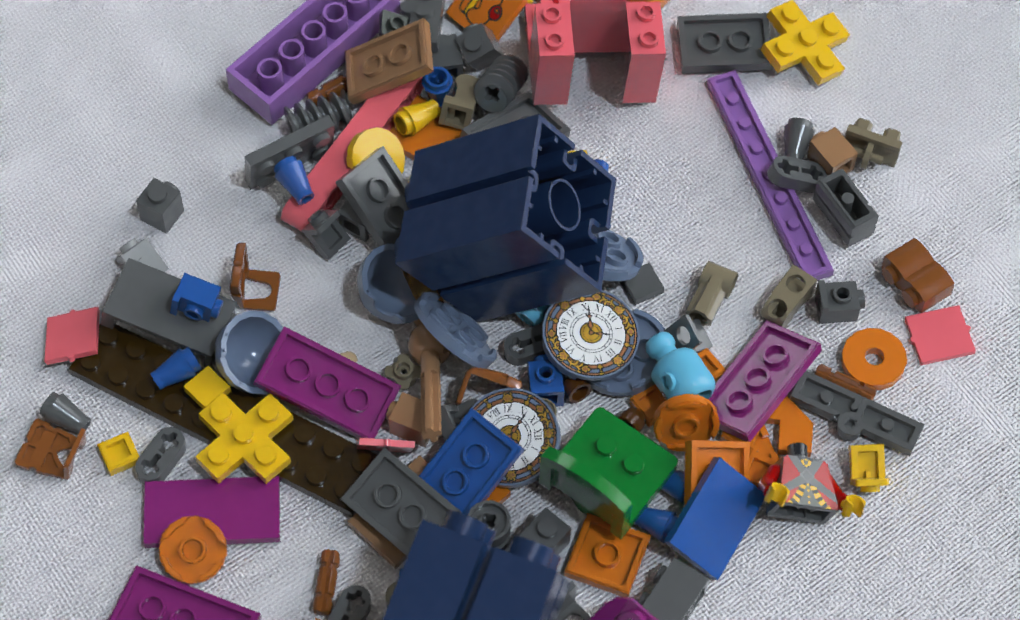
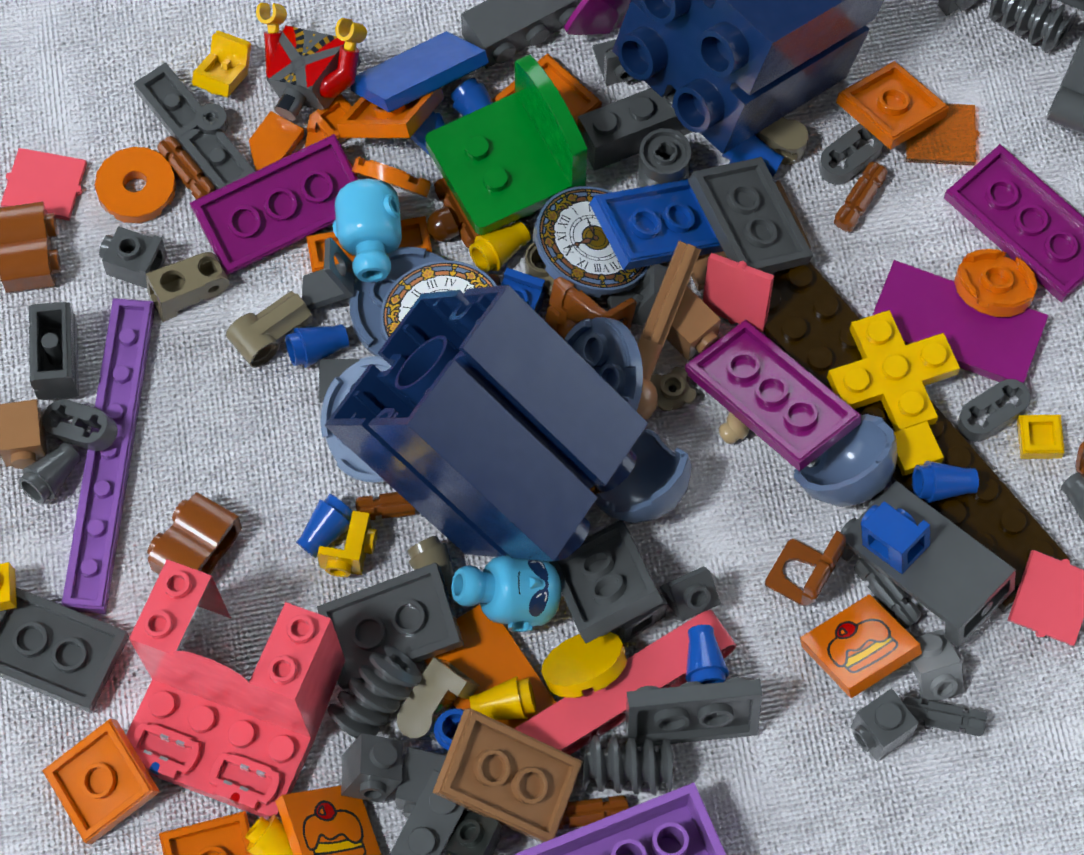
camera: 155 degrees left, 5 degrees up
(122, 234) = (947, 716): none -> dark grey axle
(195, 245) = (860, 646): none -> orange tile
(579, 414) = (498, 246): none -> yellow cone
(673, 296) = (315, 343): none -> blue cone
(674, 136) = (198, 536): none -> dark orange brick

